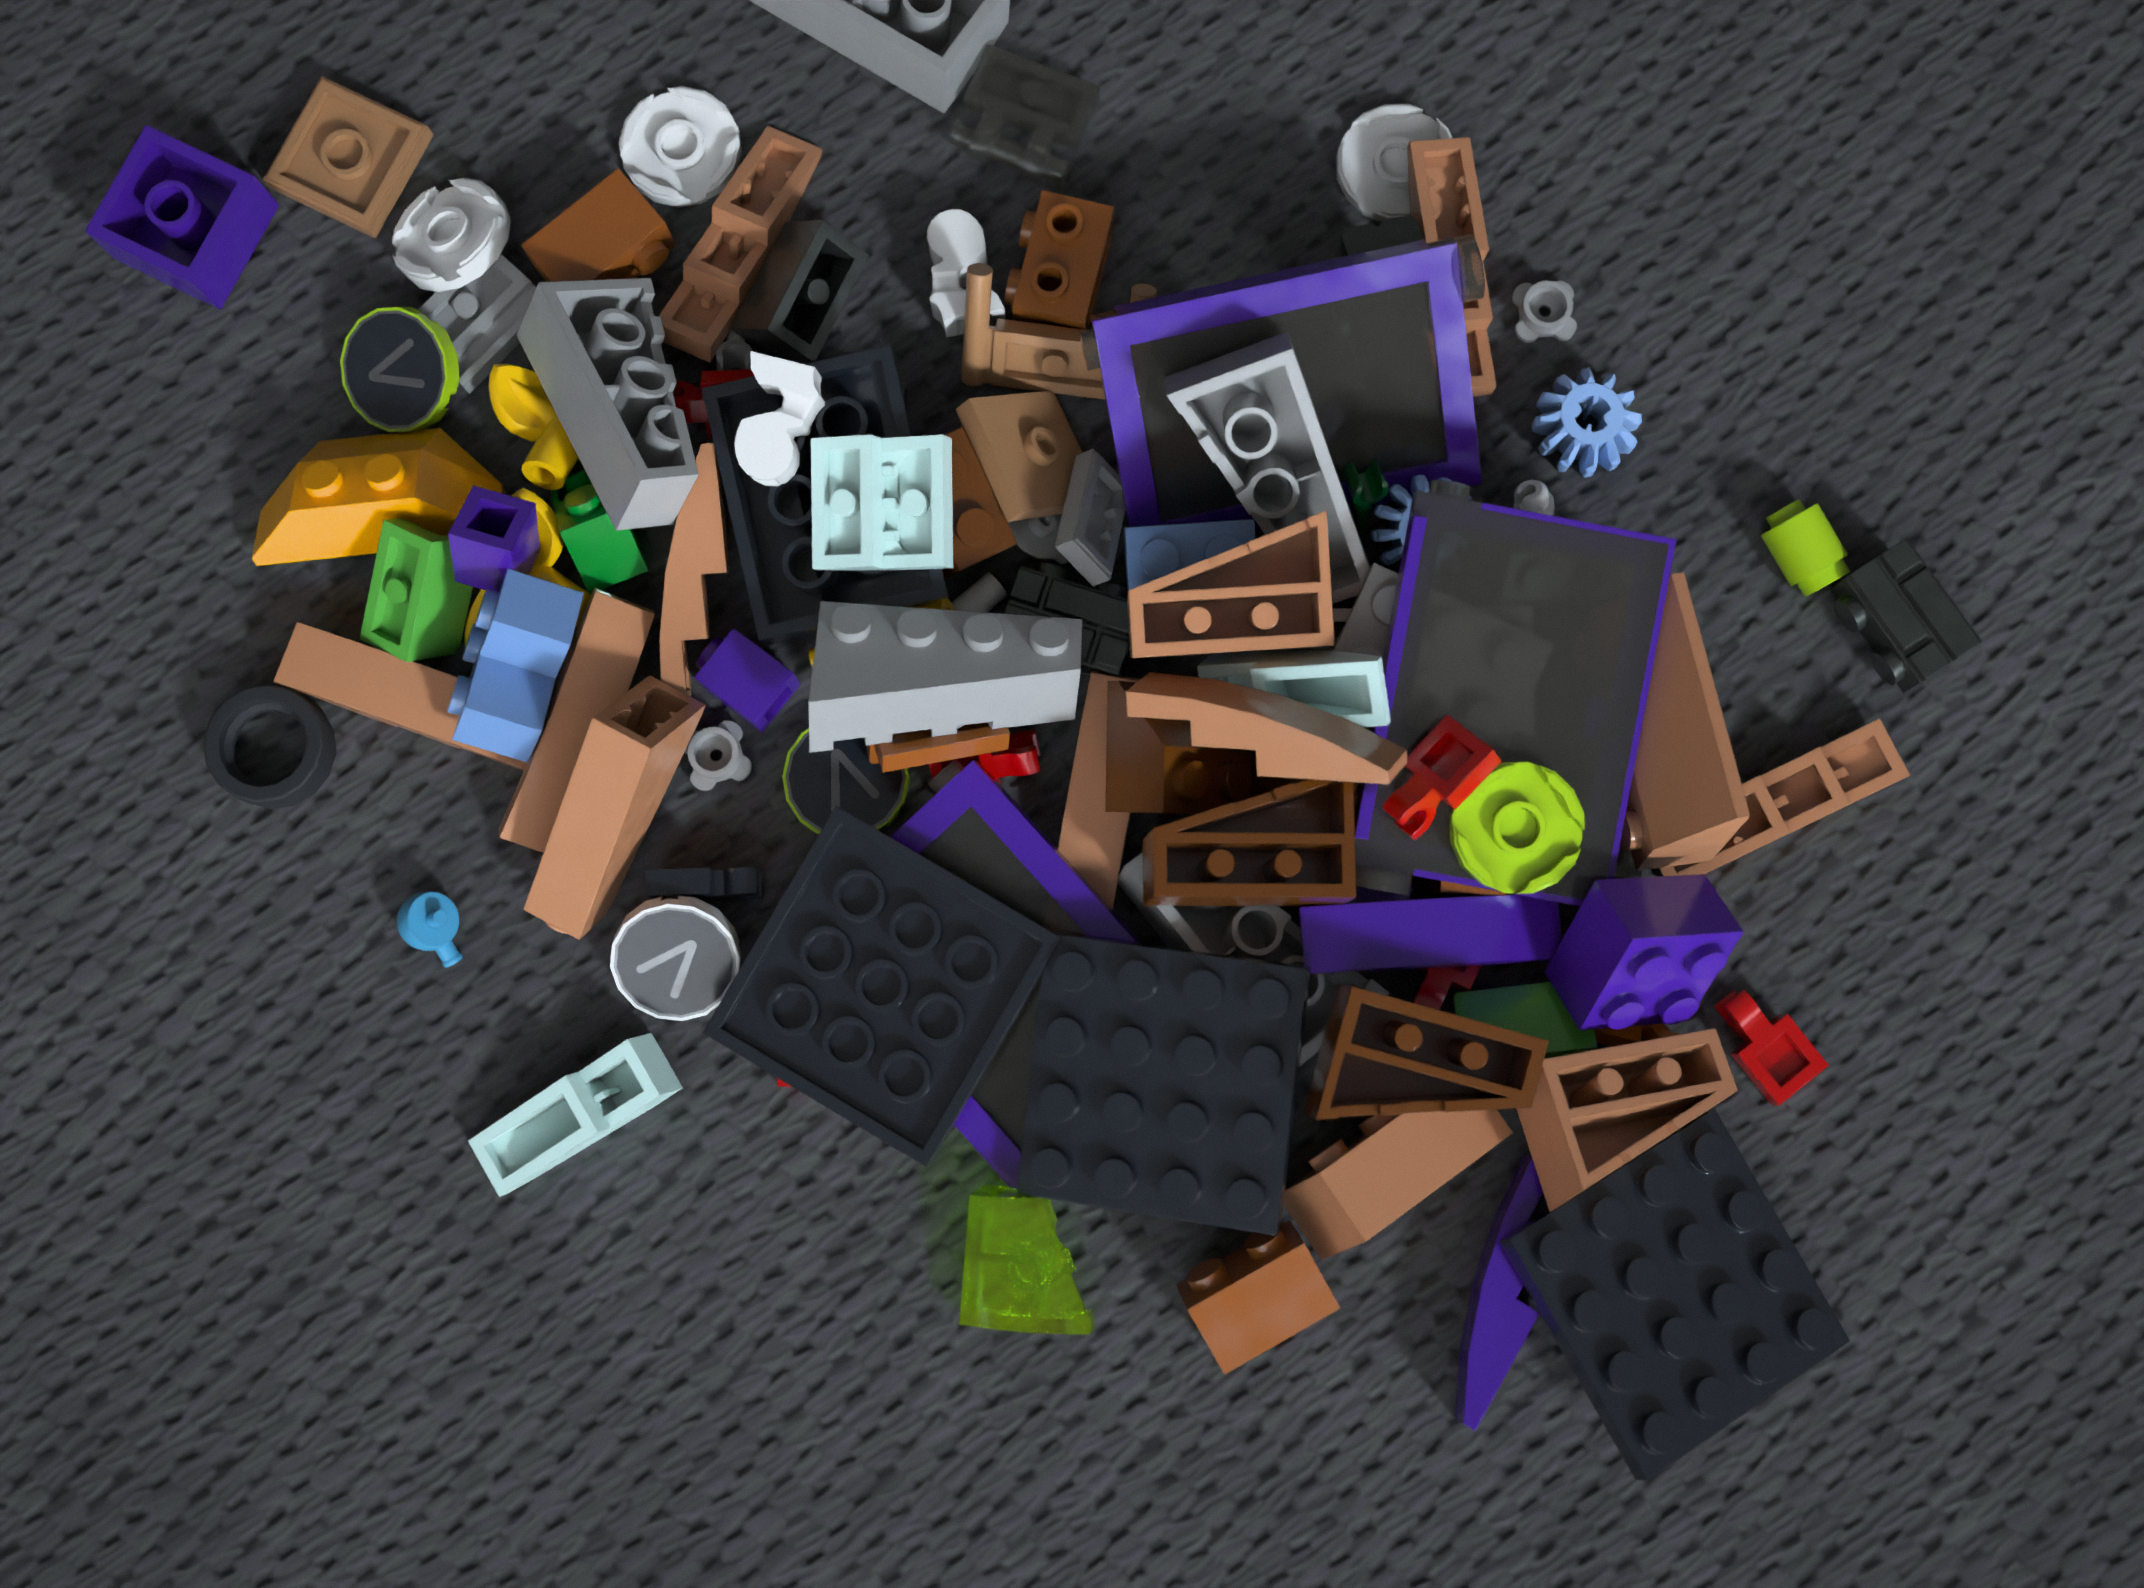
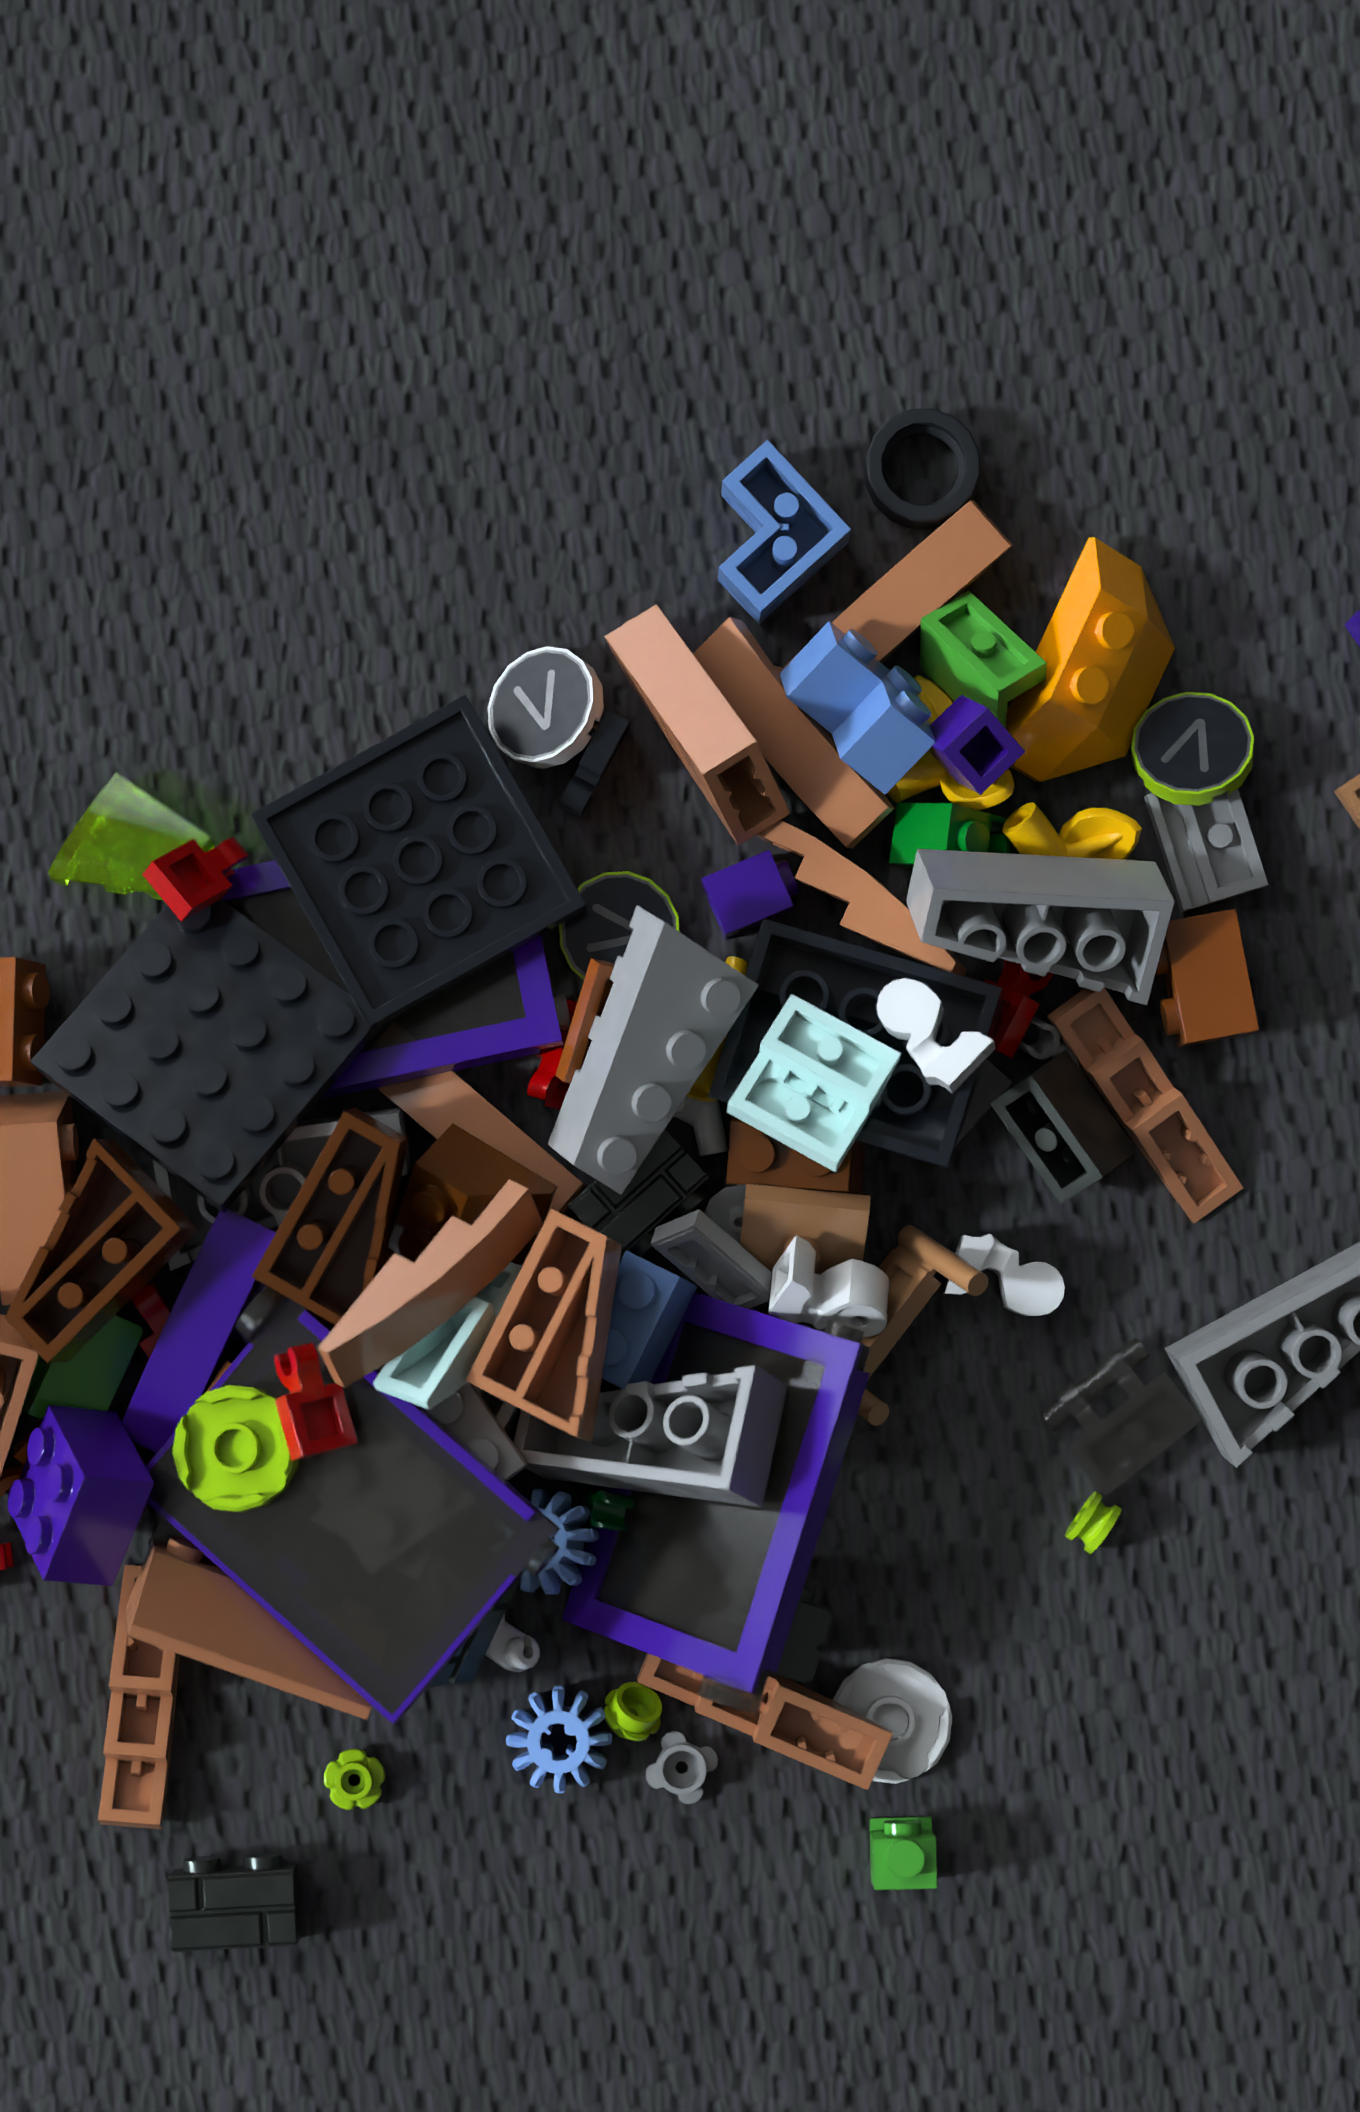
camera: 115 degrees right, 5 degrees up
(383, 829) = (791, 527): none -> medium blue brick
(429, 924) = (694, 522): dark azure piece -> none
(451, 235) = (1292, 857): white tile -> none
(575, 1113) = (467, 557): light aqua slope -> none
(683, 168) = (1245, 1110): white tile -> none
(732, 764) = (686, 843): light grey plate -> none
(1016, 1184) = (194, 879): none -> red plate
(1058, 390) = (845, 1294): none -> white leg
(1062, 261) = (961, 1368): dark orange brick -> none
(1128, 86) = (1093, 1522): none -> lime bush
(1504, 83) = (902, 1853): none -> bright green brick
(1523, 375) = (633, 1711): none -> lime plate
(1715, 587) = (370, 1773): none -> lime plate
(1805, 547) = (342, 1860): lime brick -> none

